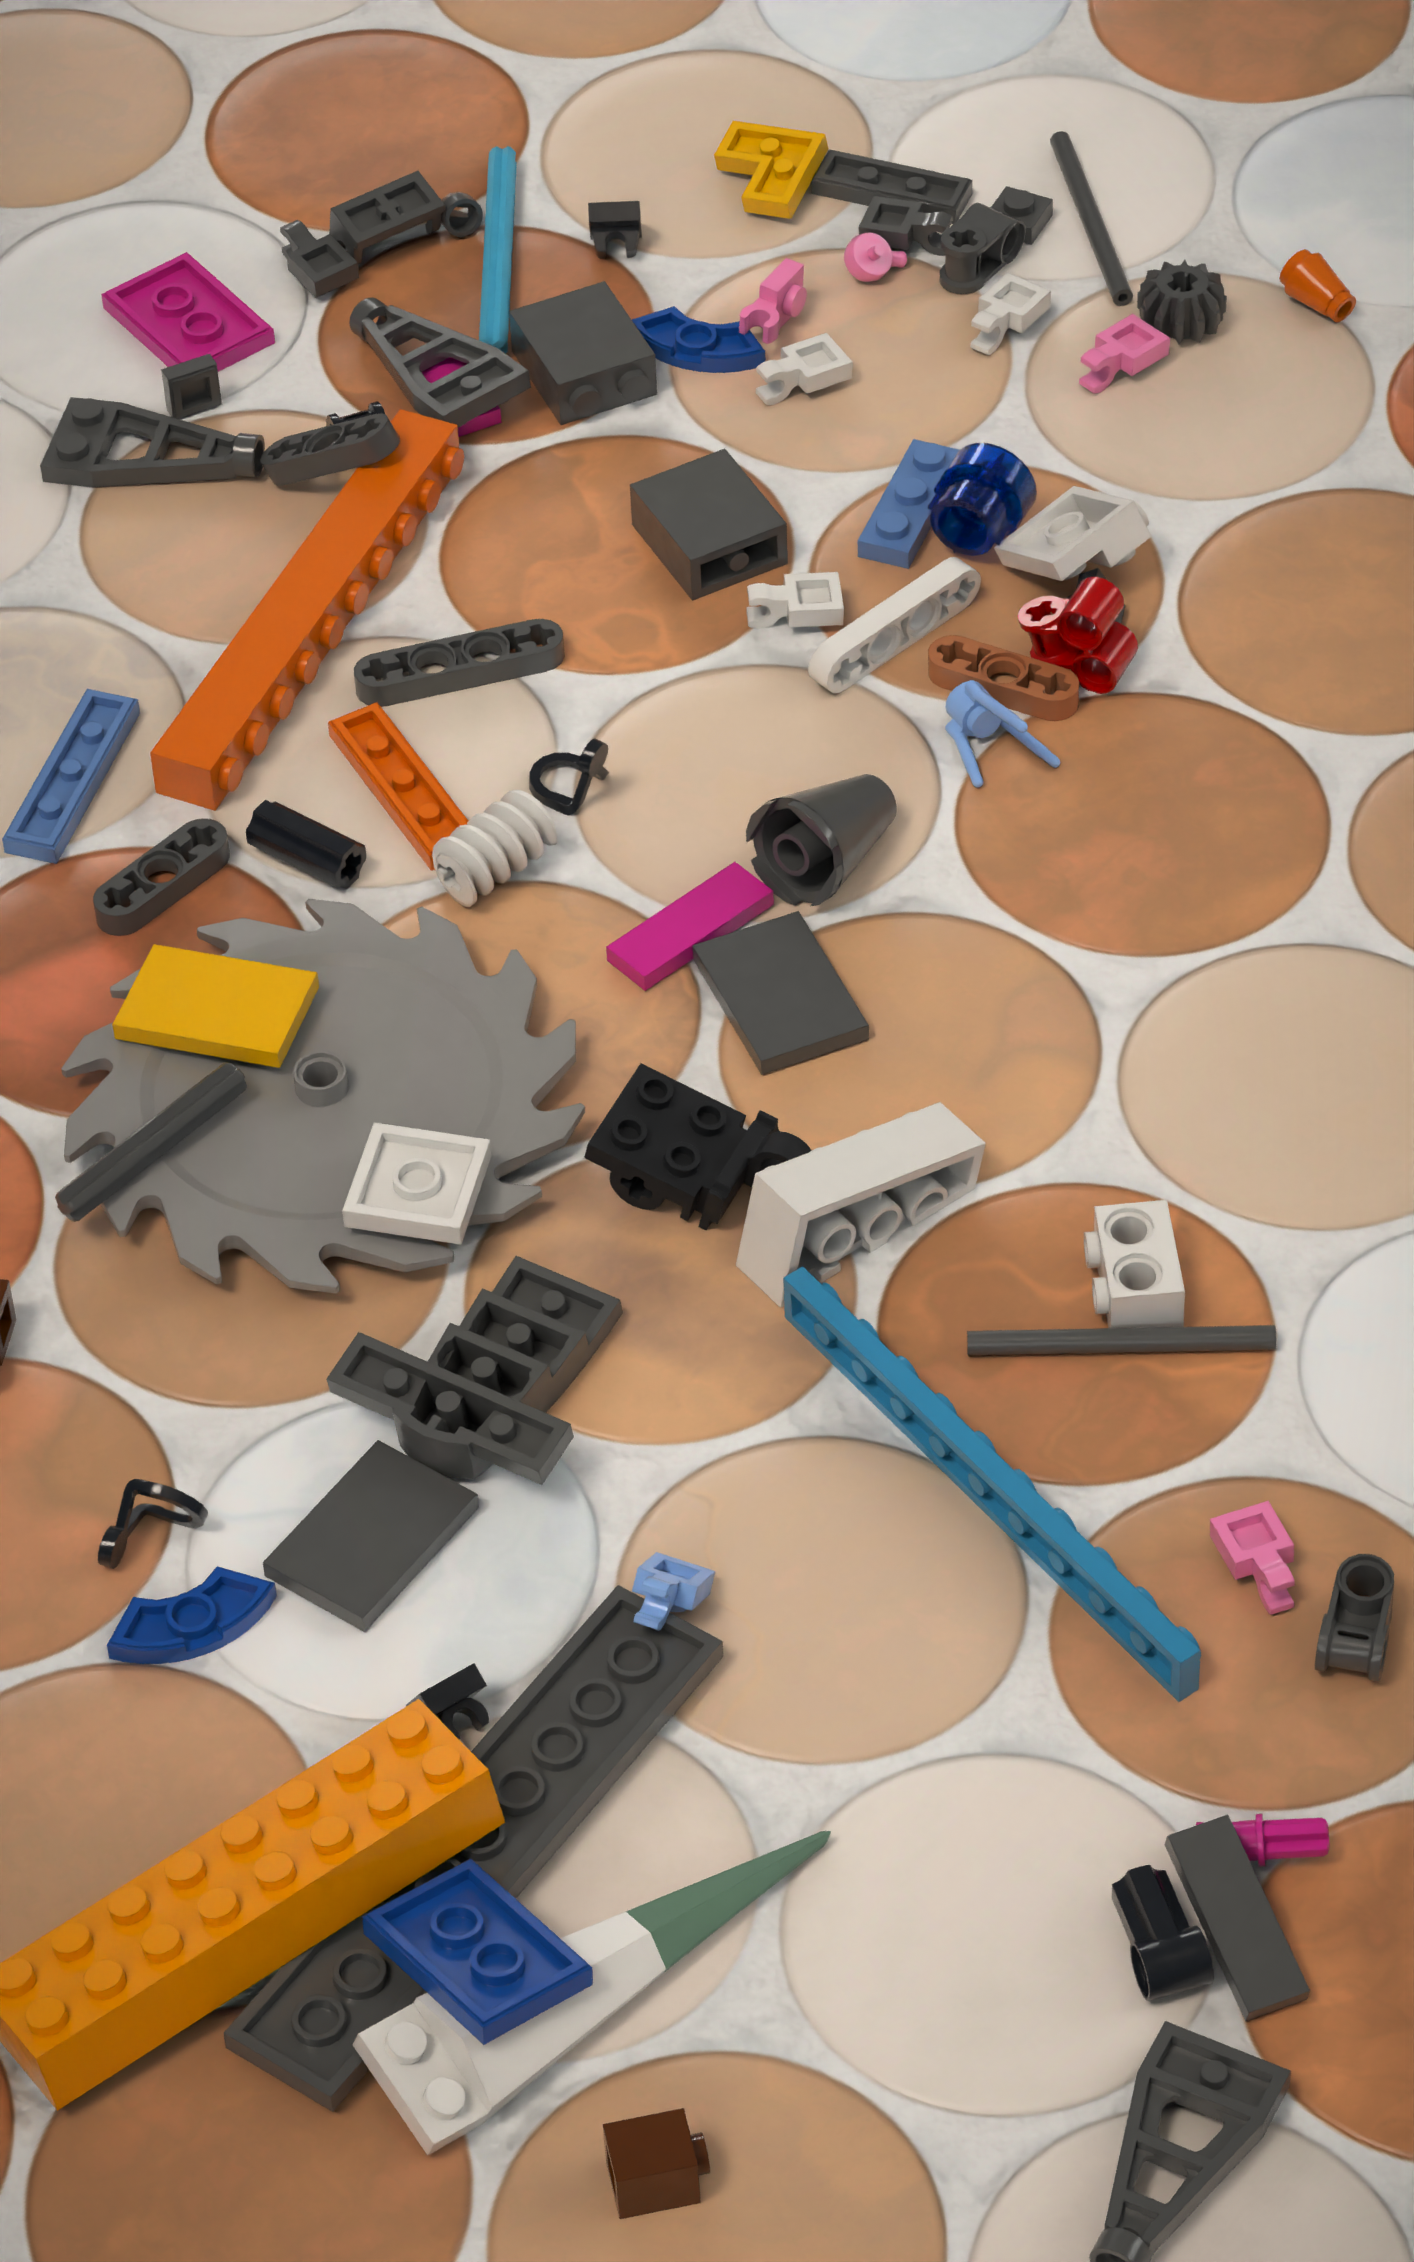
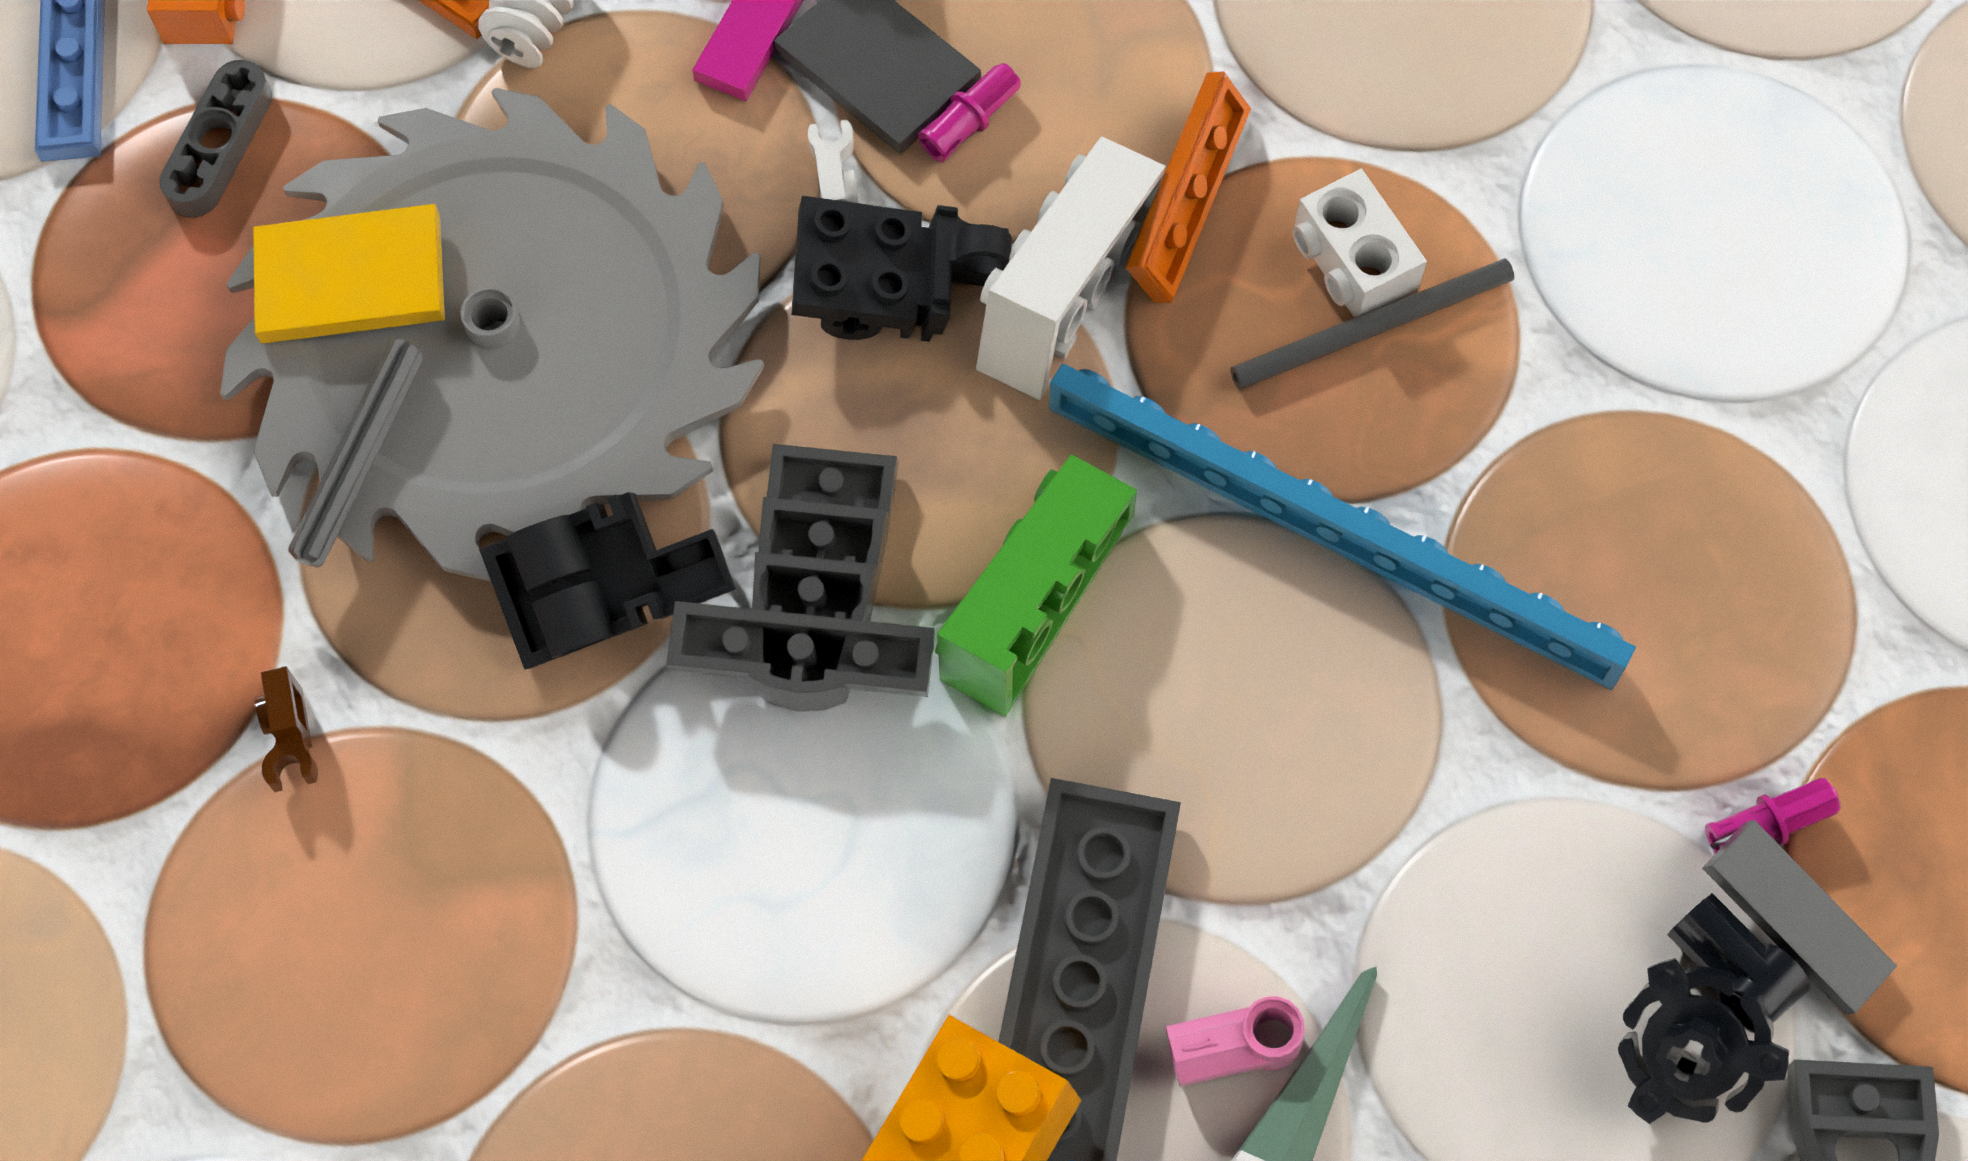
camera: 25 degrees left, 20 degrees up
(115, 1538) = (530, 867): black piece -> none
(193, 1621) = (645, 975): blue tile -> none
(301, 1298) = (591, 575): none -> black plate
(306, 844) = (345, 55): black axle -> none
(370, 1535) = (776, 806): dark grey tile -> none
(417, 1183) = (647, 406): white plate -> none
(455, 1696) = (946, 968): black tile -> none
(669, 1587) = (1102, 756): light blue plate -> none
(682, 1433) = (1033, 584): none -> bright green wedge
(688, 1052) = (829, 157): none -> white plate
(688, 1838) = (1226, 1042): none -> bright pink piece
(839, 1056) = (969, 112): none -> dark pink axle
(1005, 1174) = (1188, 188): none -> orange tile
(1069, 1963) = (1678, 1083): none -> black piece
(1257, 1544) = (1610, 502): bright pink plate -> none
(1357, 1626) = (1748, 561): dark grey piece -> none

